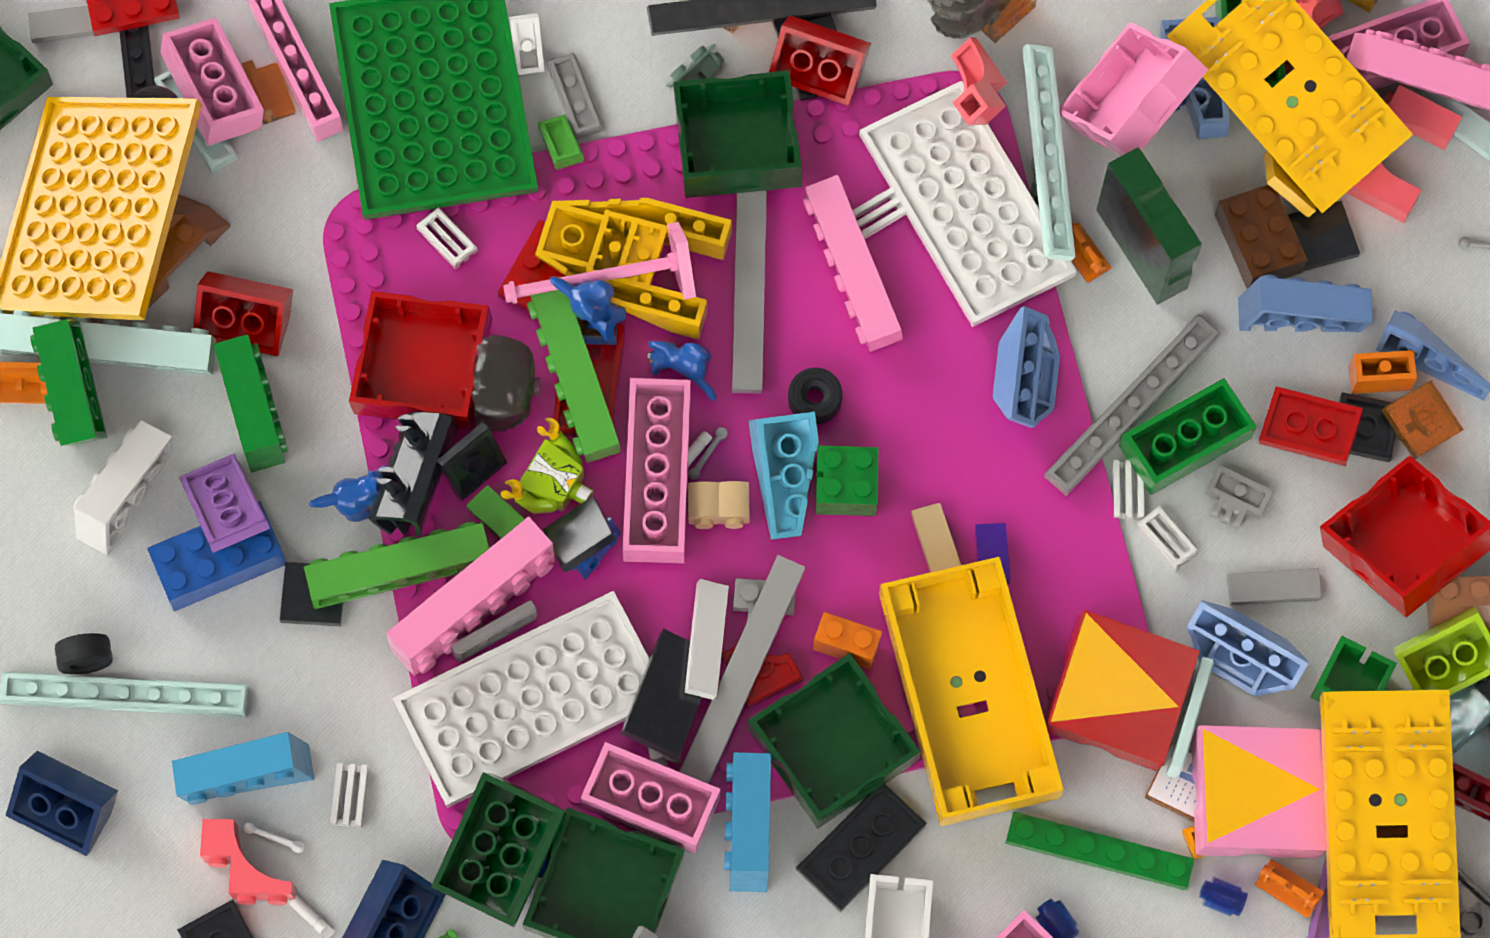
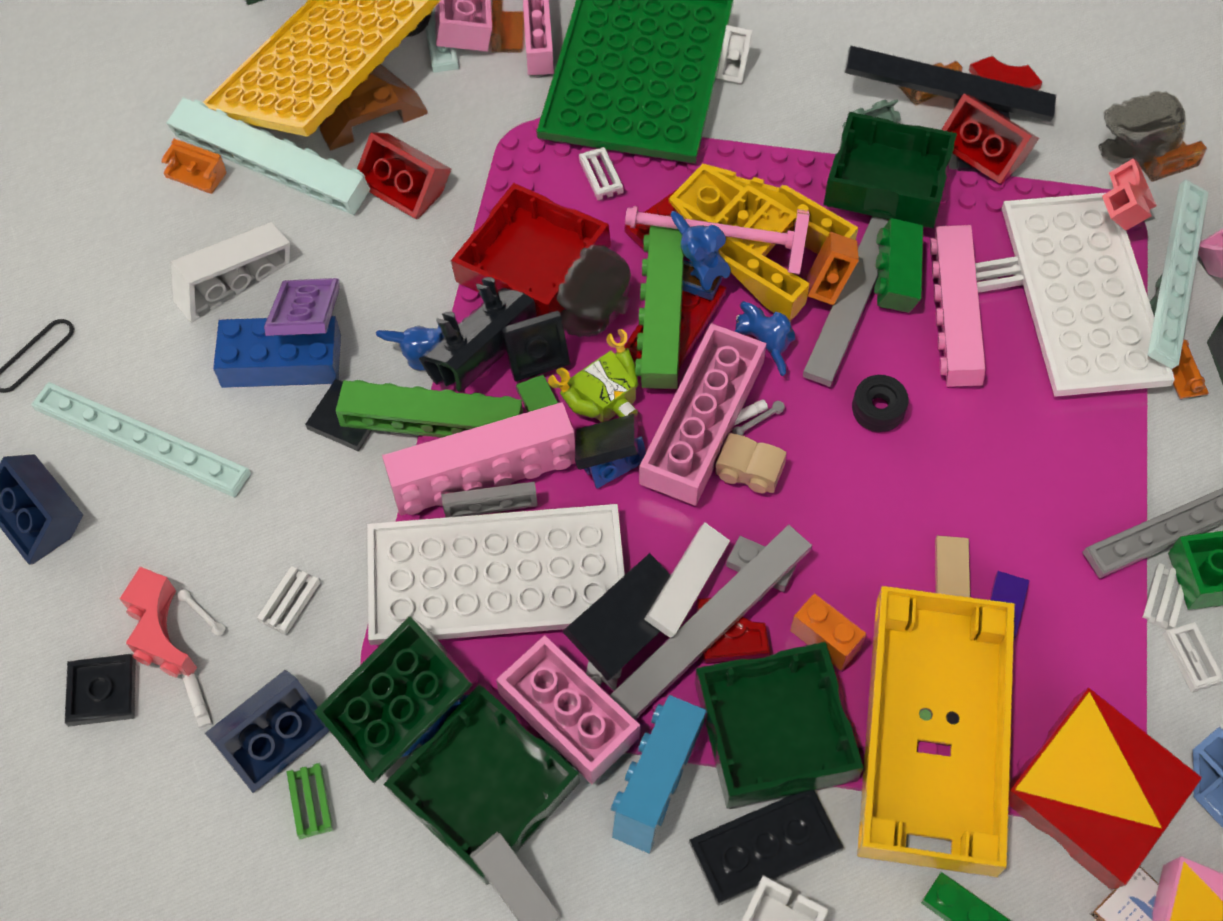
camera: 25 degrees right, 10 degrees down
(68, 382) = (224, 168): green brick -> none
(83, 653) = (119, 387): black tyre -> none
(243, 768) = (205, 537): dark azure wedge -> none
(251, 402) = (368, 239): green brick -> none
(560, 142) = (732, 134): bright green tile -> none
(574, 96) = (759, 108): light grey tile -> none
(722, 274) = (832, 268): none -> orange brick
(783, 242) = (899, 265): none -> green brick
(784, 464) = (827, 450): medium azure wedge -> none
(847, 480) = (882, 485): green piece -> none
(1027, 369) = (1099, 445): medium blue wedge -> none
(1190, 718) = (1168, 847): light aqua tile -> none

